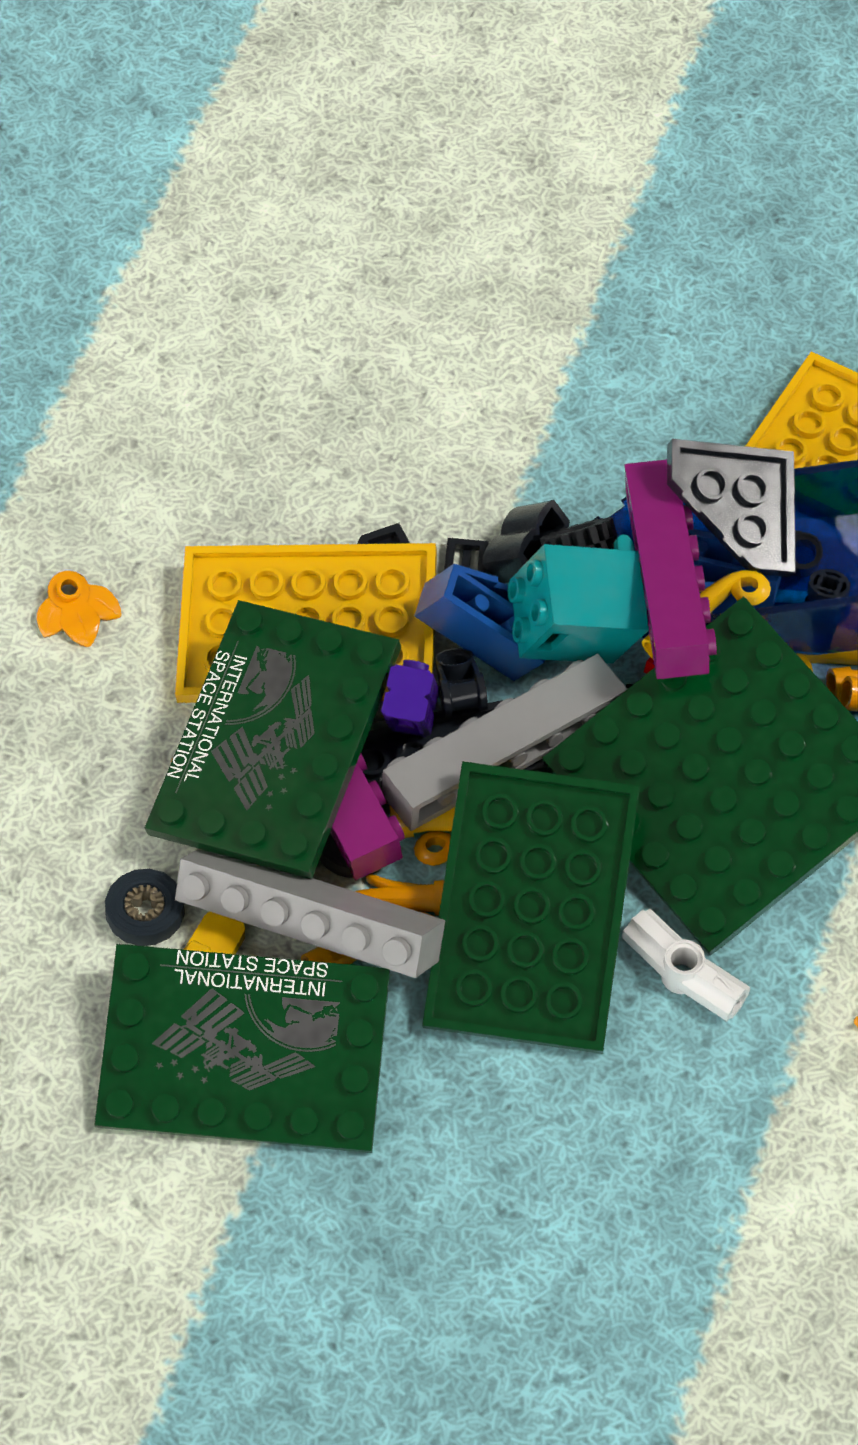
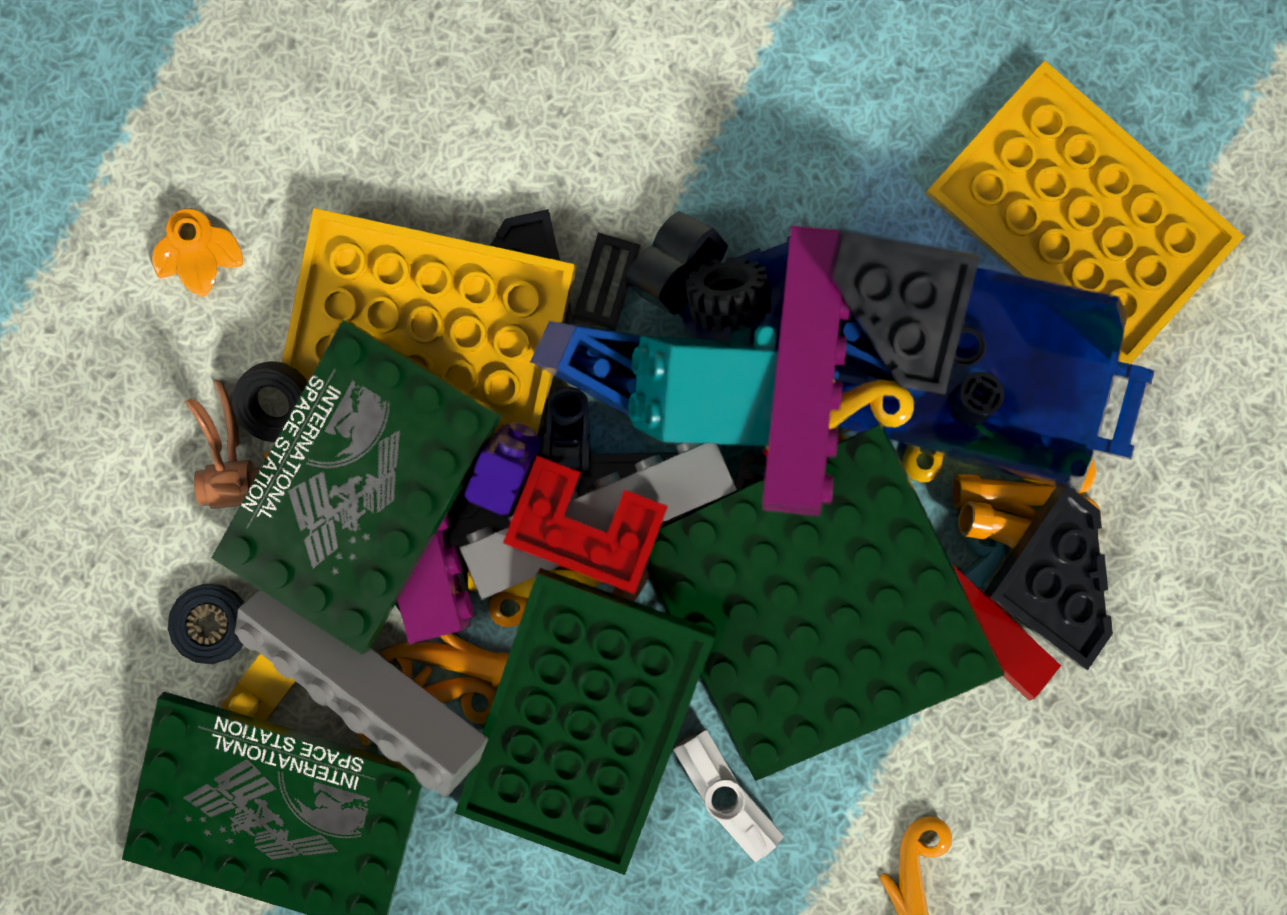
camera: 10 degrees right, 30 degrees up
(140, 782) = (221, 483): none -> nougat plant
(149, 699) = (246, 402): none -> black tyre
(461, 736) = (608, 557): none -> red plate

